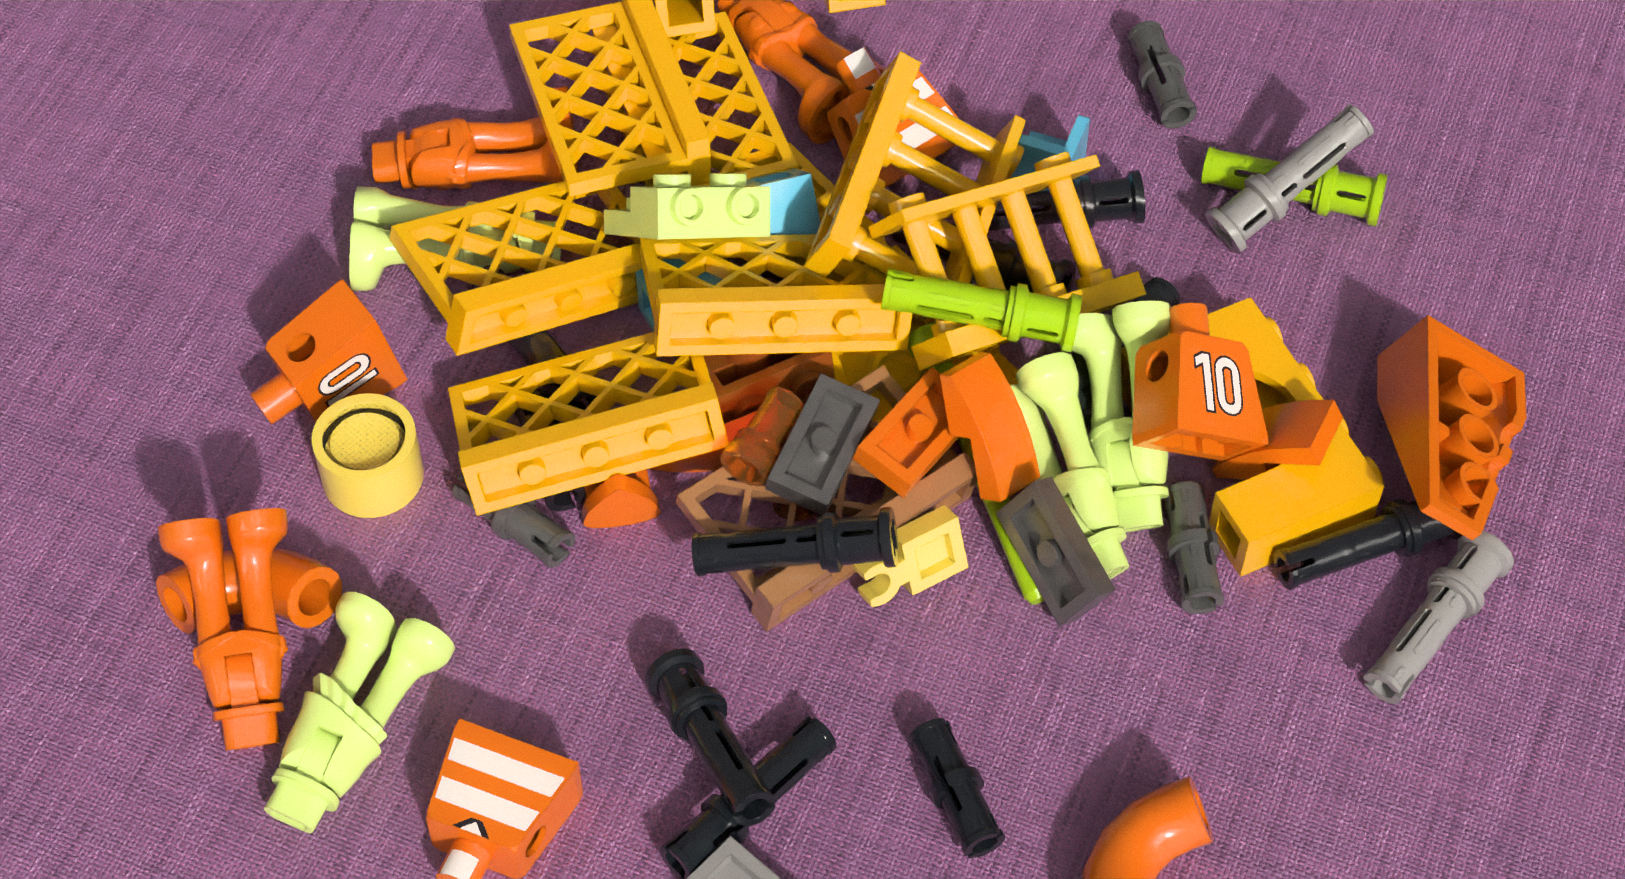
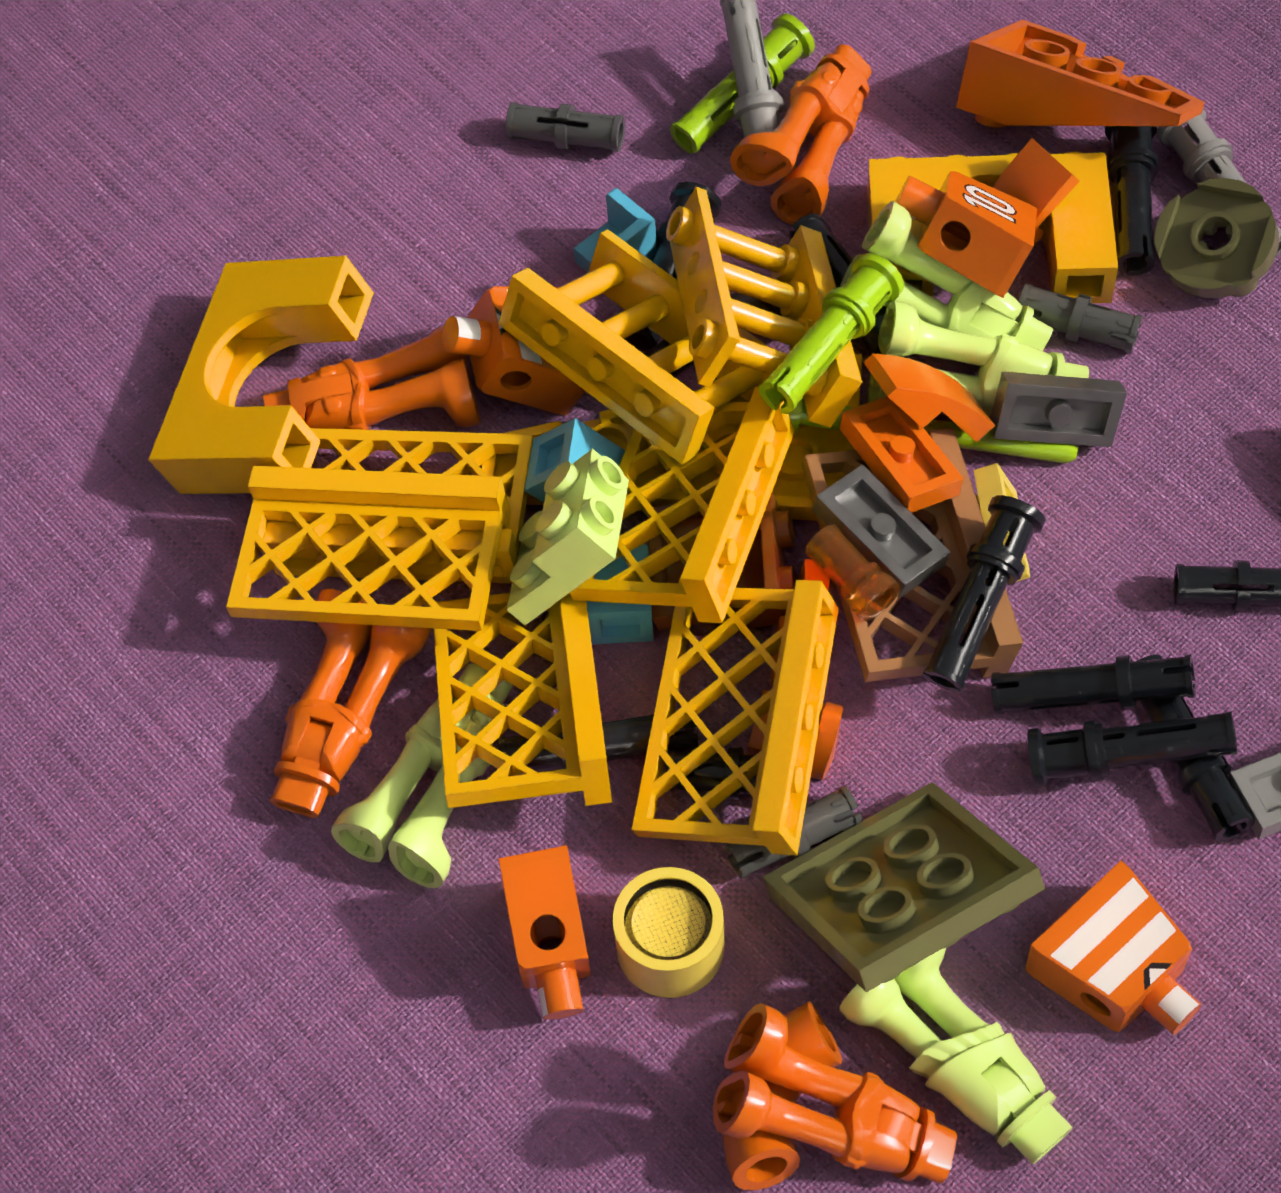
camera: 60 degrees left, 5 degrees up
(472, 596) = (902, 885): none -> olive plate
(776, 705) = (1094, 684): none -> black pin
(1309, 252) = (828, 108): none -> orange piece
(1356, 653) = (1233, 267): none -> olive plate

